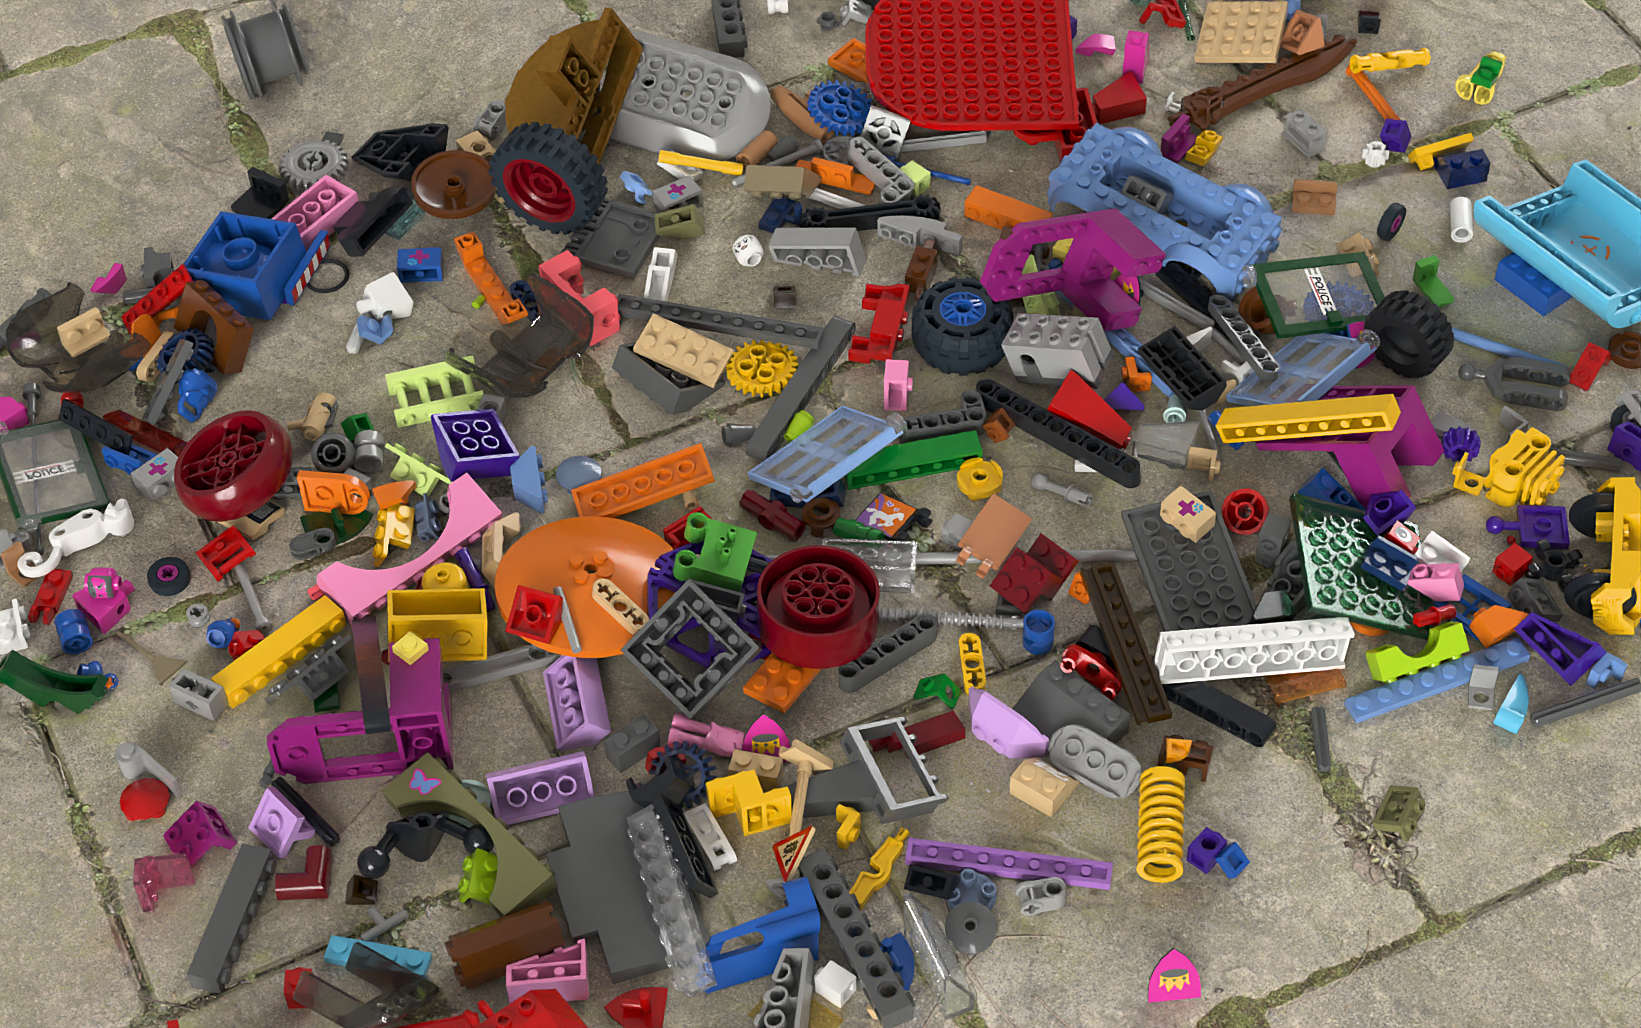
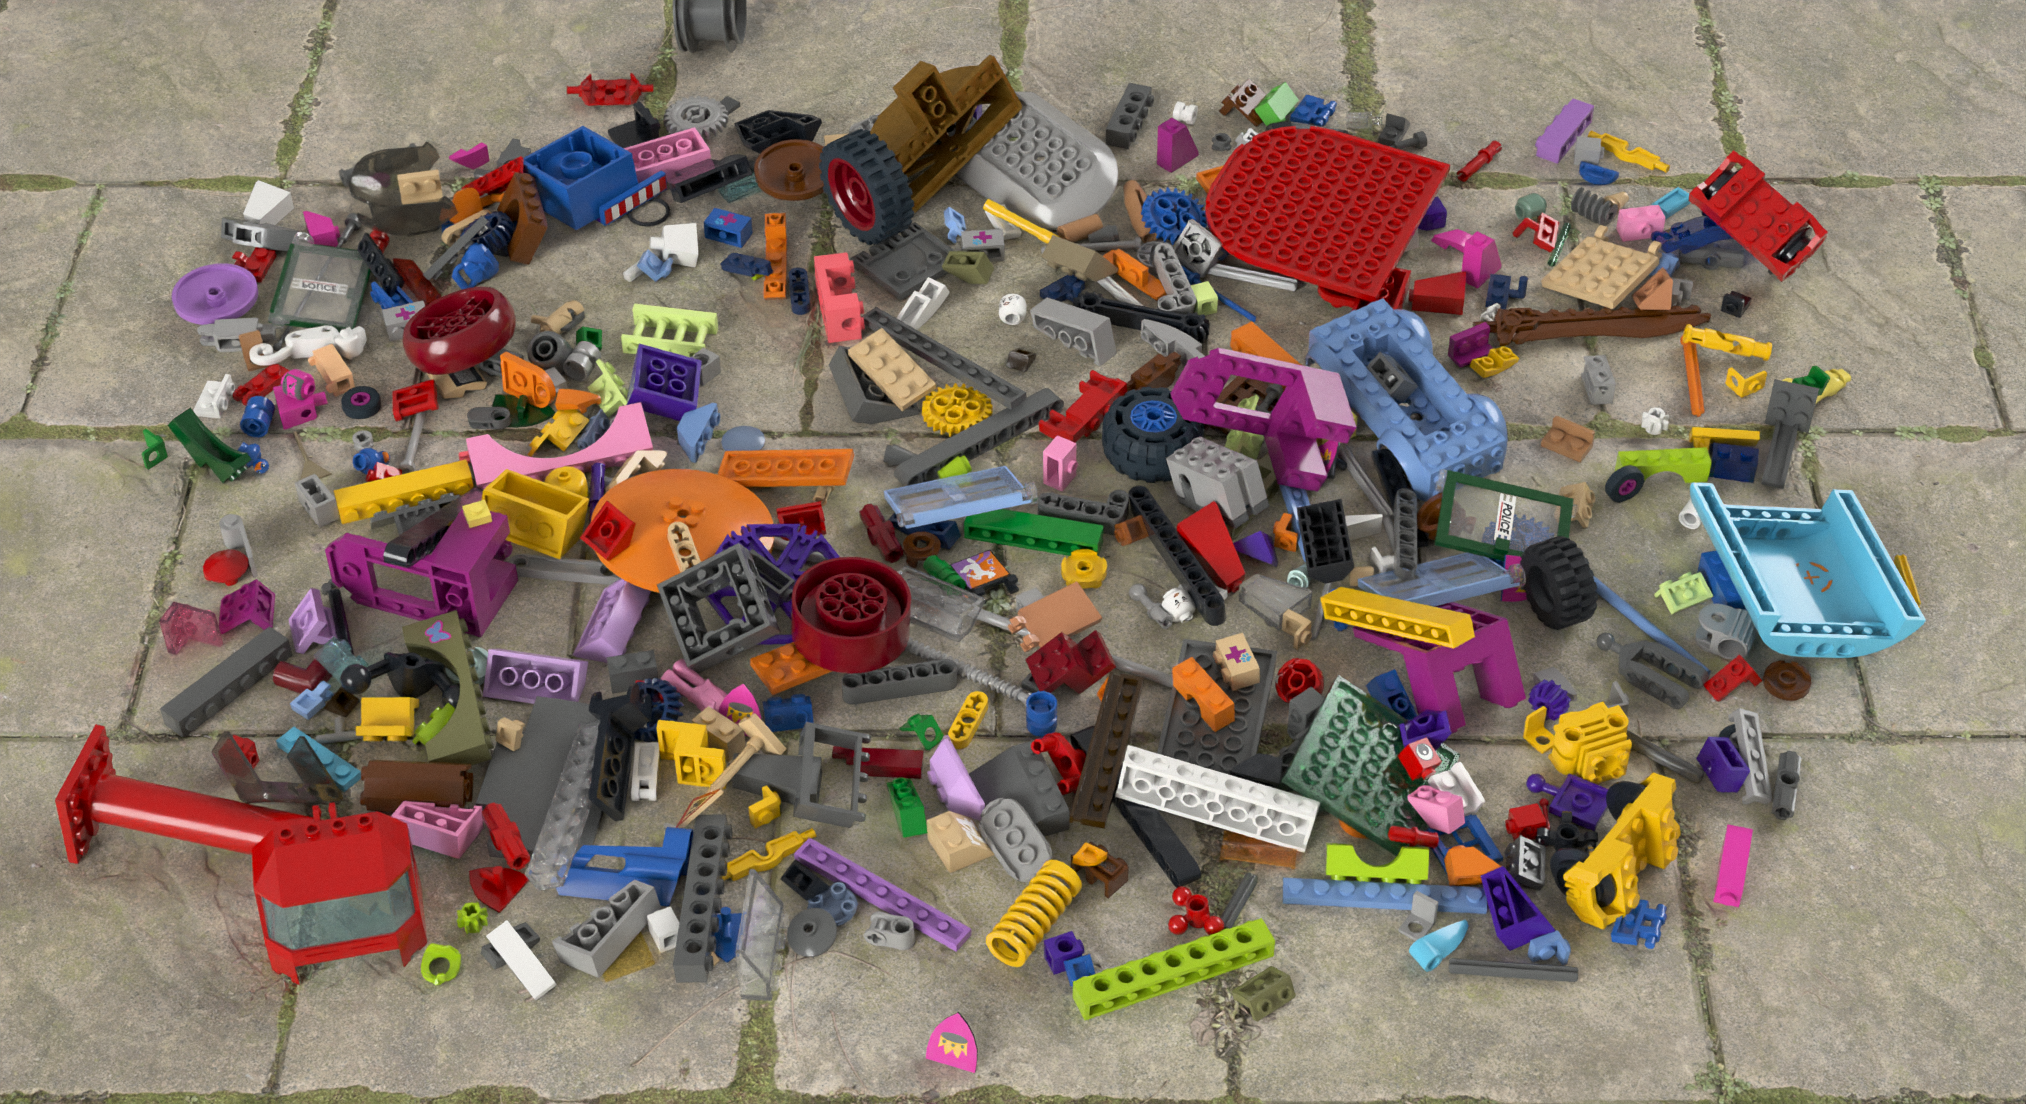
camera: 25 degrees right, 5 degrees down
(118, 553) = (332, 369): none -> light nougat brick
(221, 160) = (599, 91): none -> red plate
(332, 903) = (311, 702): none -> light blue plate
(338, 850) = (337, 656): none -> clear light blue bracket
(427, 888) = (387, 718): none -> yellow bracket
(464, 296) = (746, 265): none -> dark blue hinge
(556, 335) = (782, 326): clear smoke piece -> none
(563, 854) = (509, 733): none -> tan tile
(568, 622) = (633, 547): light grey bar -> none
(629, 958) = (505, 836): none -> red piece
(723, 555) = (799, 544): bright green piece -> none
(794, 39) = (1174, 145): none -> magenta slope
(806, 722) = (787, 713): none -> blue bracket
(979, 772) = (907, 807): none -> green slope
(1089, 479) = (1179, 605): none -> white head
(1165, 81) = (1500, 290): none -> dark blue plate
(1193, 560) = (1214, 704): none -> orange arch
(1262, 885) = (1173, 968): none -> lime brick
(1288, 779) = (1197, 913): none -> red piece
(1388, 562) = (1396, 772): dark blue bracket -> none
(1395, 135) = (1684, 410): dark purple brick -> none
(1426, 94) = (1748, 385): none -> yellow bracket
(1429, 283) = (1627, 551): bright green bracket -> none
(1431, 182) = (1690, 463): none -> lime arch
(1482, 106) = (1789, 411): none -> dark grey bracket
(1501, 302) = (1685, 592): none -> yellowish green bracket
(1569, 327) = (1729, 636): none -> light grey piece

